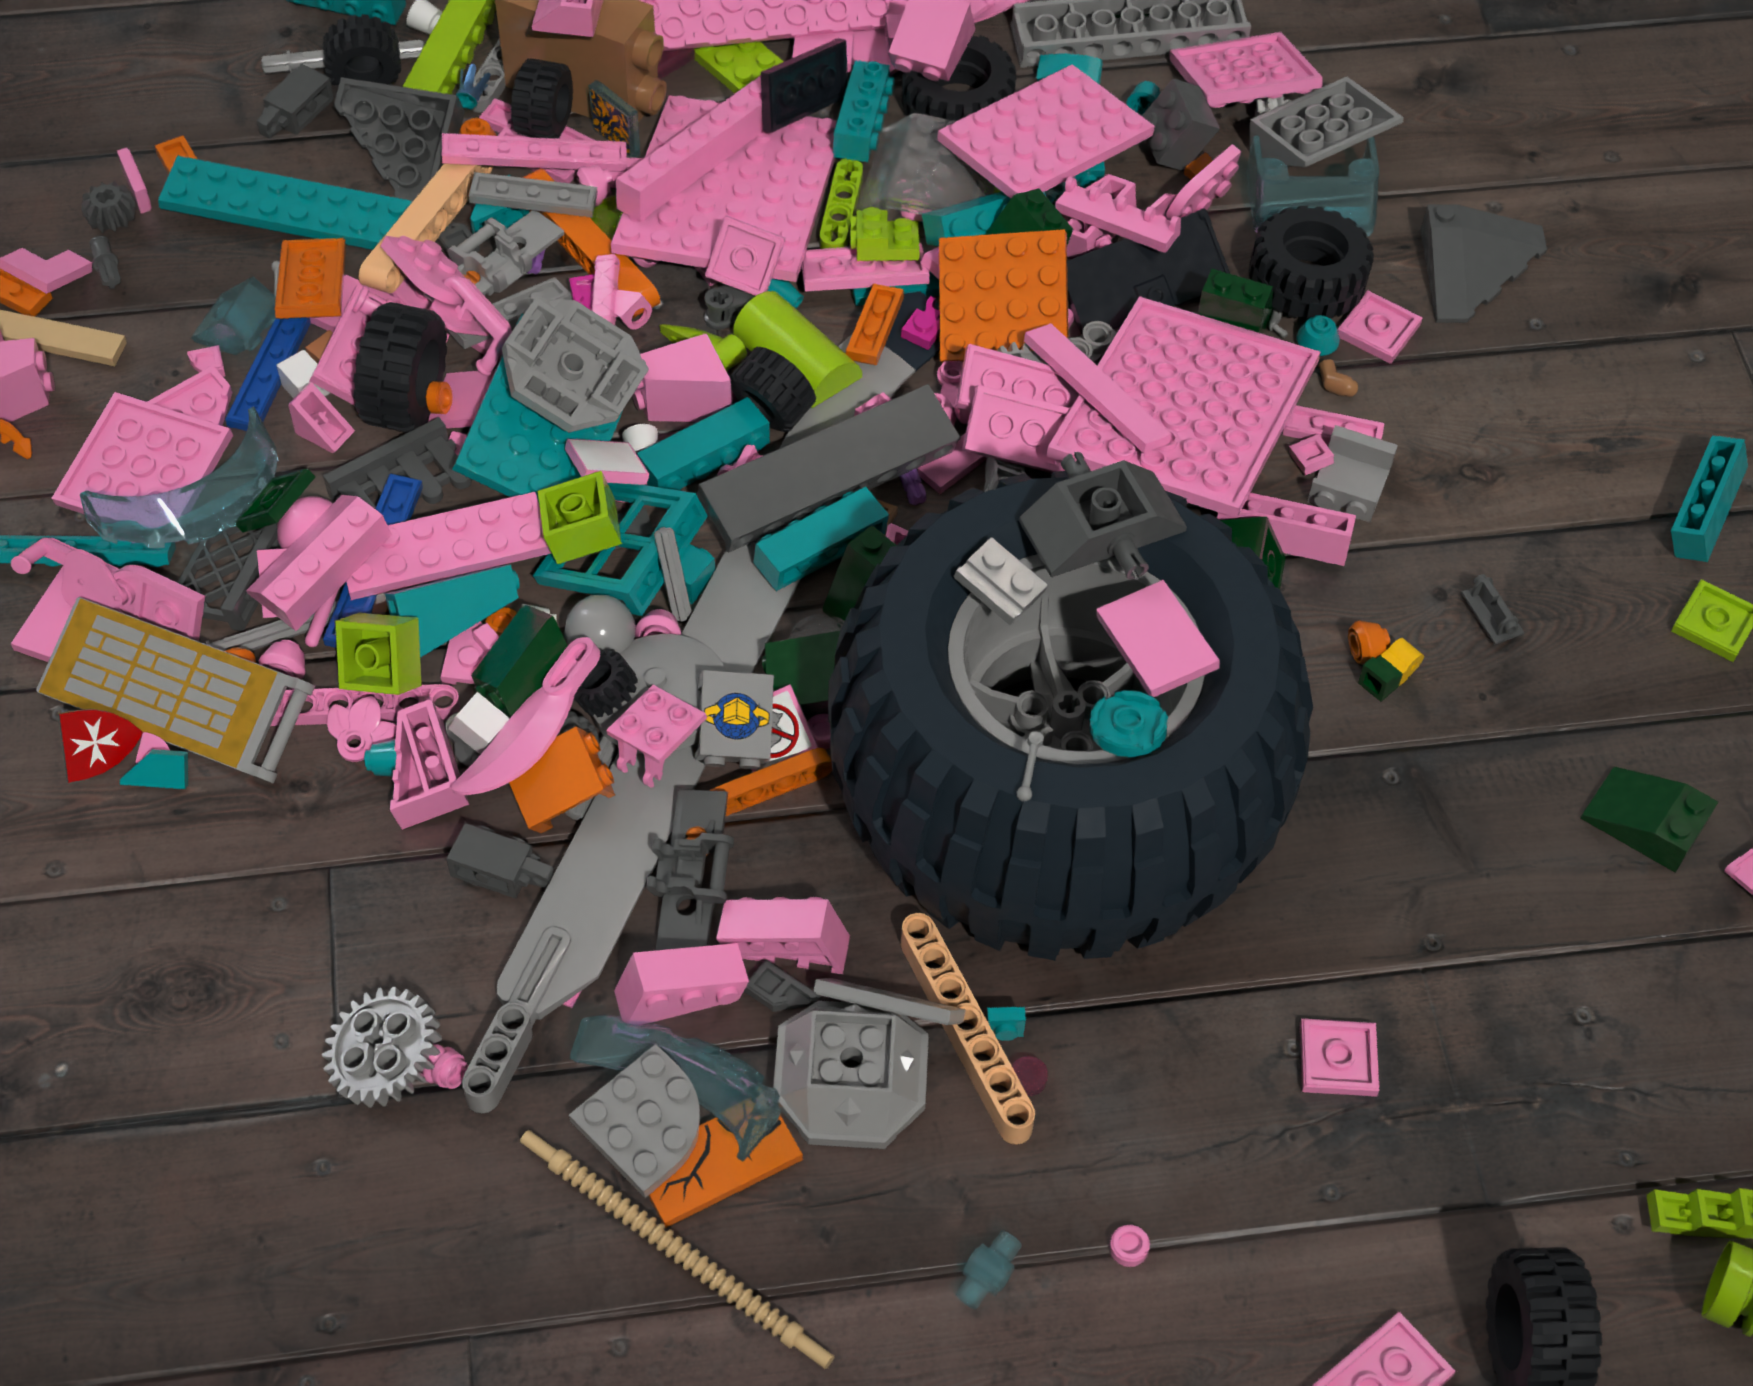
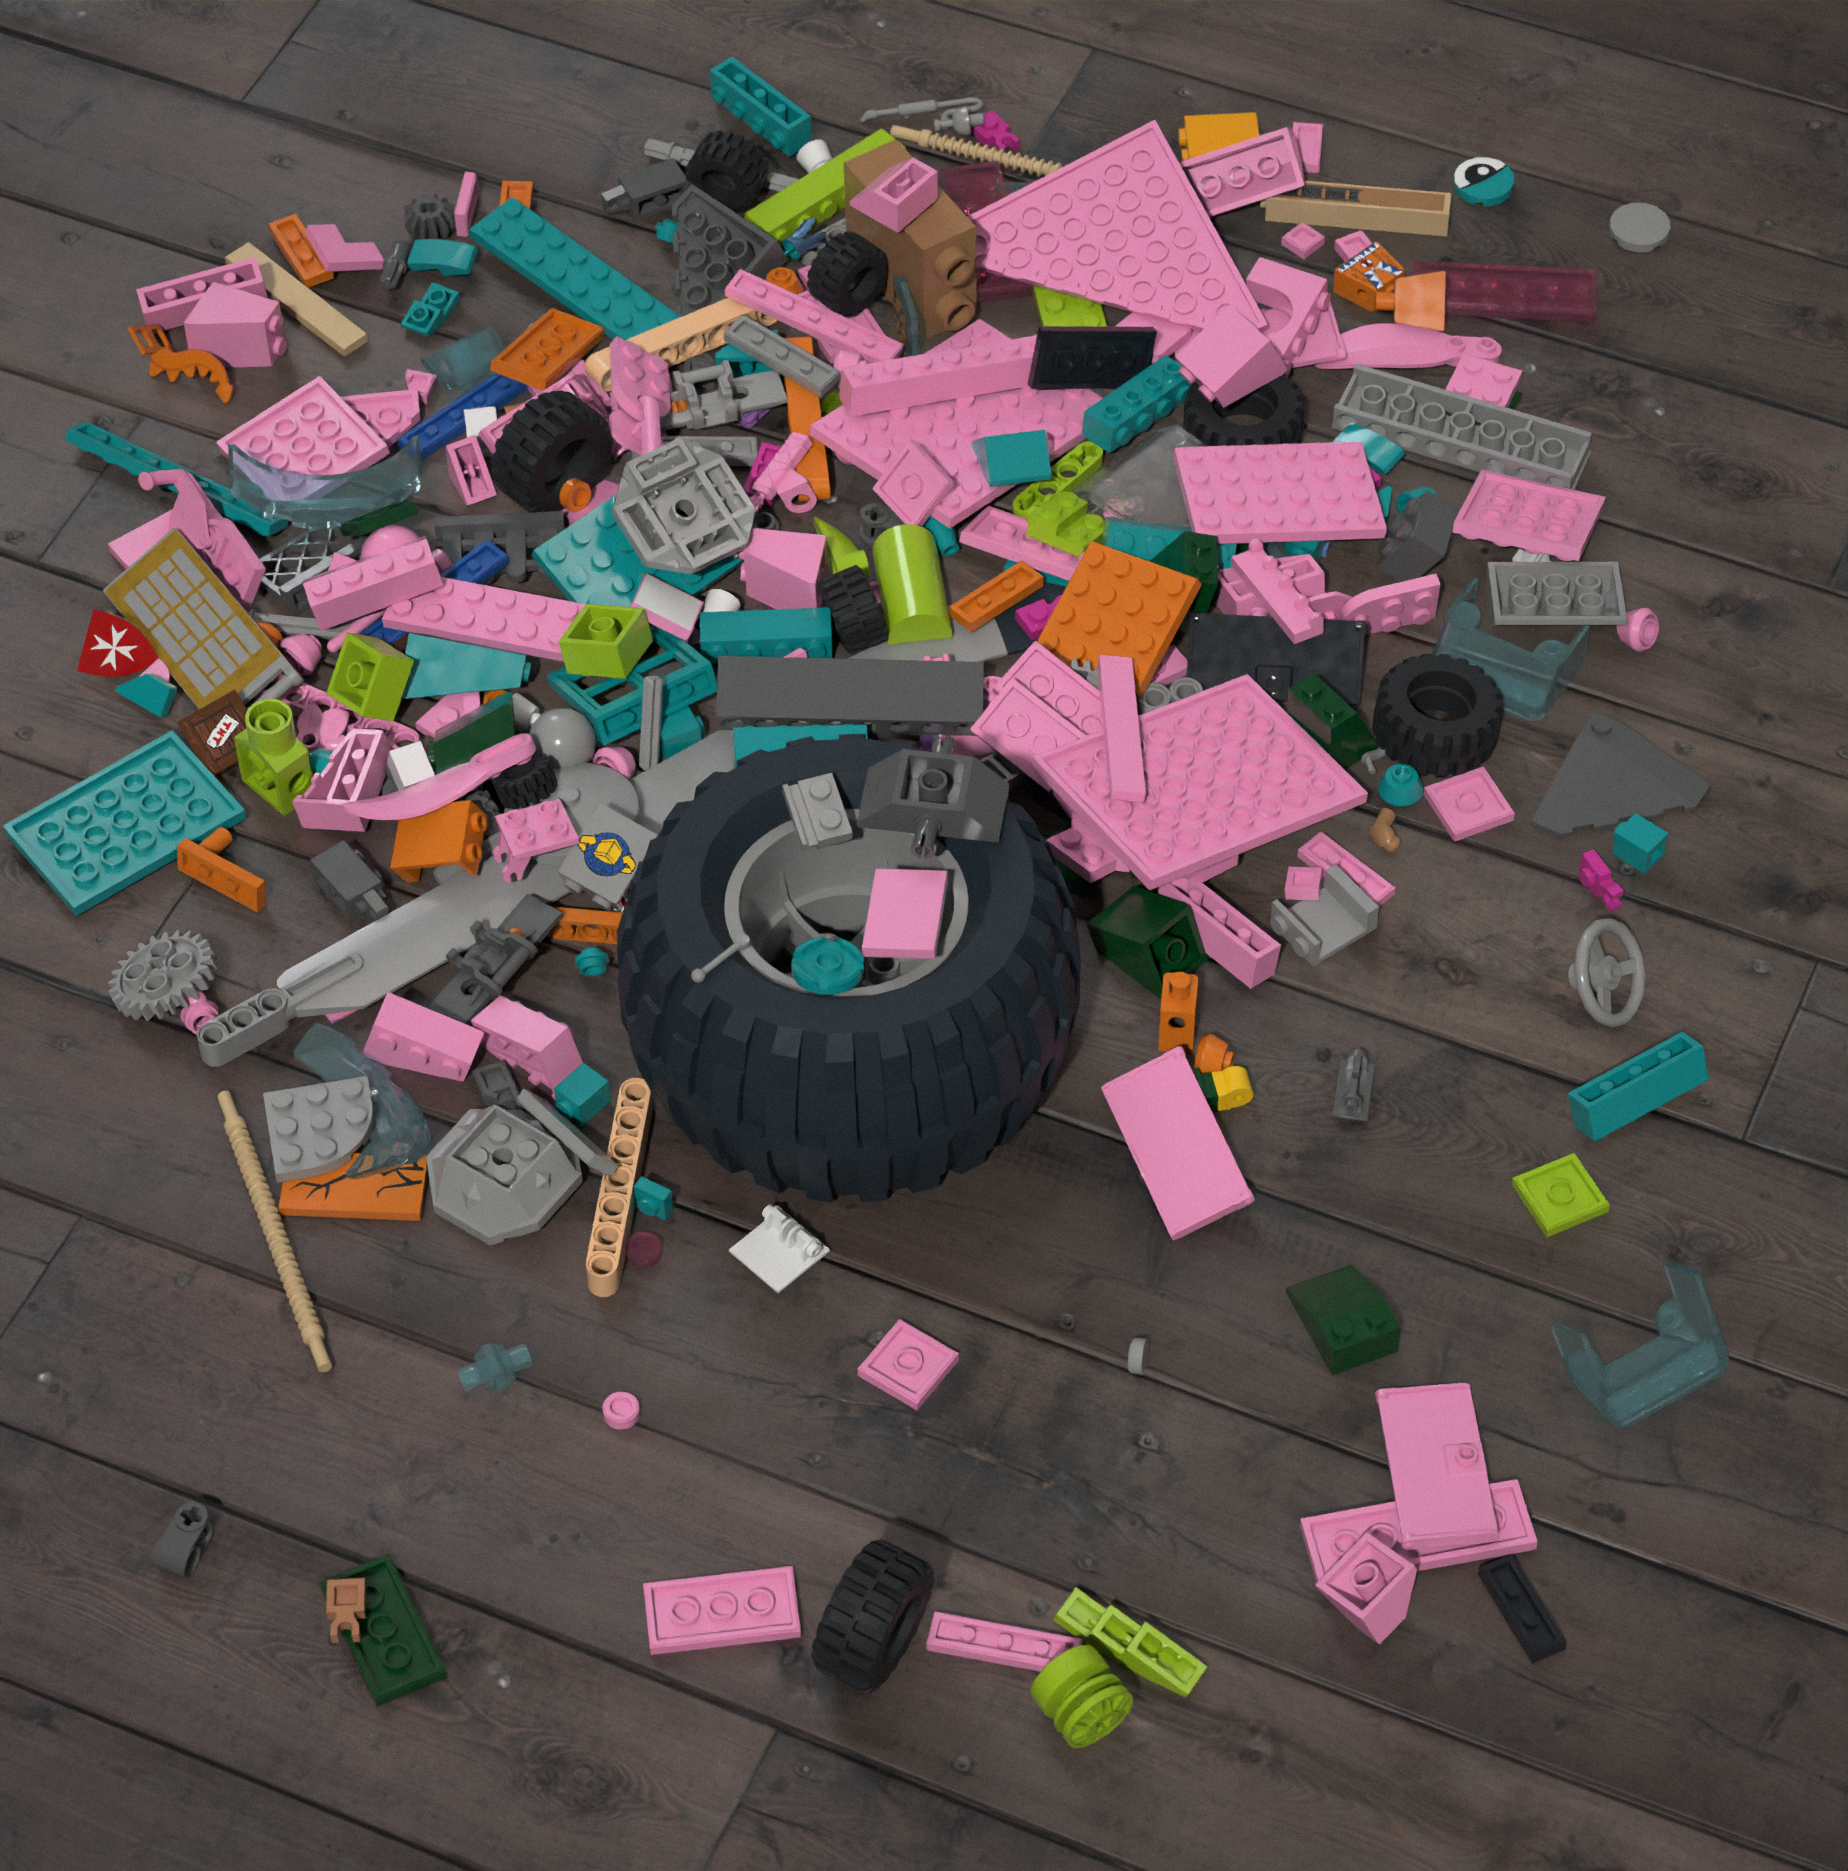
camera: 35 degrees right, 5 degrees down
(148, 233) = (447, 256): none -> teal slope
(169, 289) = (432, 311): none -> teal slope
(225, 912) = (123, 822): none -> teal plate
(266, 776) = (213, 732): none -> tile
(339, 129) = (665, 229): none -> teal plate
(339, 914) = (205, 865): none -> orange piece
(342, 775) = (272, 756): none -> lime brick
(776, 824) = (592, 962): none -> teal plate
(807, 196) = (1013, 457): none -> teal slope
(865, 956) = (582, 1095): none -> teal brick
(1148, 1010) = (779, 1249): none -> white hinge
(1315, 615) = (1178, 1000): none -> orange torso
(1398, 134) = (1640, 630): none -> bright pink cone
(1405, 733) = (1177, 1143): none -> bright pink door
(1524, 942) = (1138, 1356): none -> light grey tile
(1530, 341) = (1597, 876): none -> dark pink plate
(1536, 297) = (1639, 843): none -> teal brick
(1608, 416) = (1604, 972): none -> light grey piece
(1647, 1272) = (996, 1642): none -> bright pink tile

